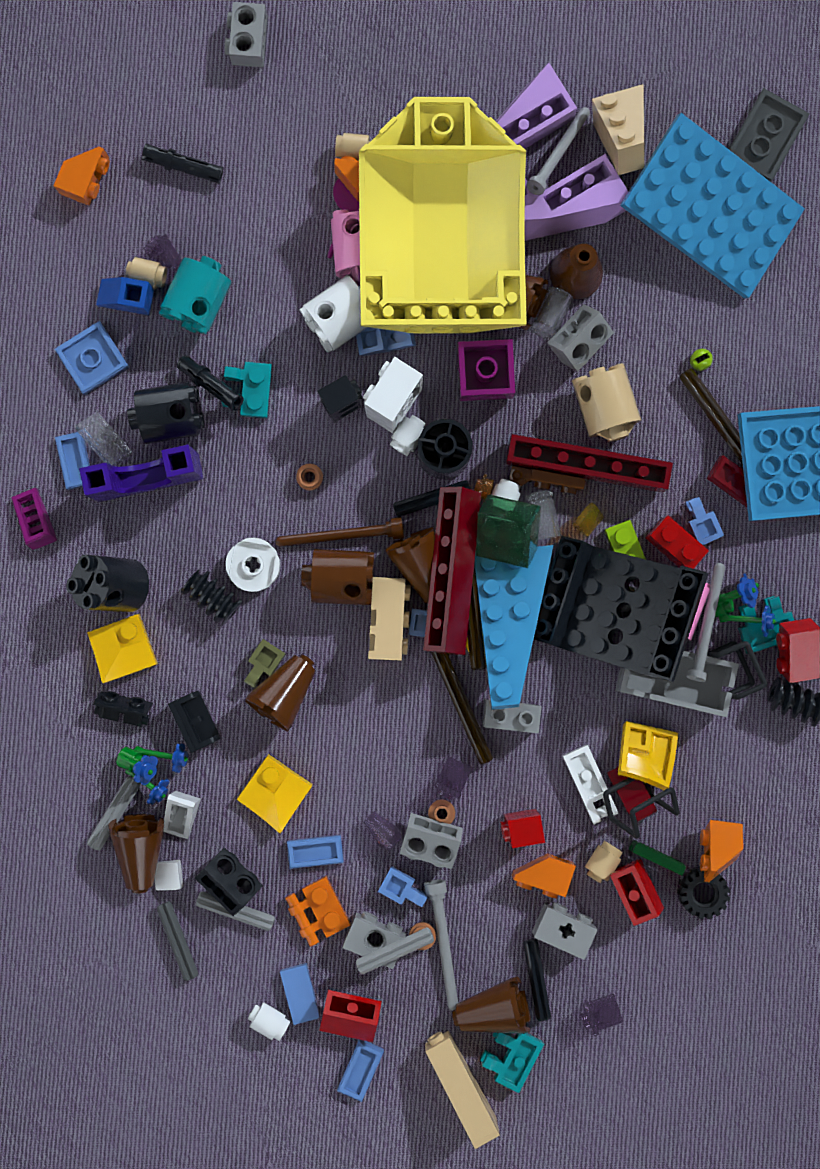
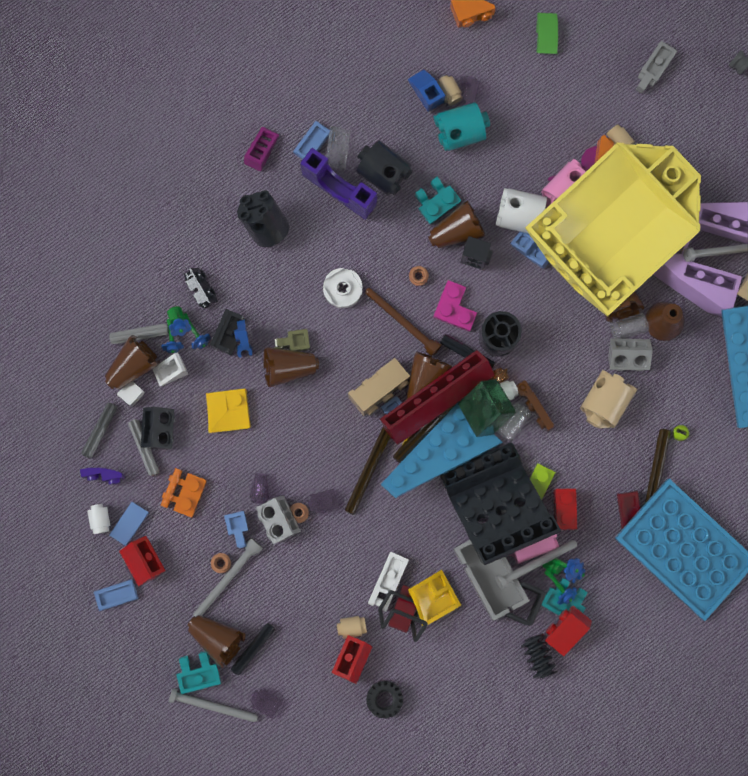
camera: 50 degrees right, 5 degrees down
(91, 358) = (376, 102): medium blue tile -> none
(122, 648) = (233, 258): yellow plate -> none
(171, 160) = (524, 52): black pin -> none
(177, 119) = (547, 33): none -> bright green slope
(202, 376) = (420, 169): black pin -> none
(211, 596) = (304, 280): black piece -> none
(211, 711) = (242, 336): none -> blue plate
(235, 970) = (108, 475): none -> dark purple slope
(251, 34) = (631, 31): light grey brick -> none
(296, 394) = (457, 227): none -> reddish brown cone
(310, 43) = (655, 66): none -> light grey hinge
(315, 851) = (215, 462): medium blue tile -> none
(339, 577) = (378, 339): reddish brown cylinder -> none
(362, 926) = (187, 528): light grey brick -> none
(374, 477) = (449, 309): none -> dark pink plate
(393, 394) = (504, 279): white brick -> none
(394, 950) = (200, 551): light grey axle -> none
(407, 435) = (489, 306): white brick -> none
(462, 1089) = (156, 658): tan slope -> none
(486, 370) = (564, 318): magenta brick -> none
(522, 718) = (387, 504): light grey brick -> none
(523, 828) = (330, 563): red brick -> none
(546, 873) = (317, 601): orange slope -> none
(558, 1070) = (175, 696): none -> light grey bar
(575, 941) = (292, 651): light grey brick -> none
(588, 519) = (534, 449): clear yellow slope -> none
(589, 463) = (564, 420): dark red brick -> none
(657, 857) = (381, 655): dark green tile -> none
(704, 525) = (588, 516): medium blue plate -> none
(721, 847) = (419, 685): orange slope -> none

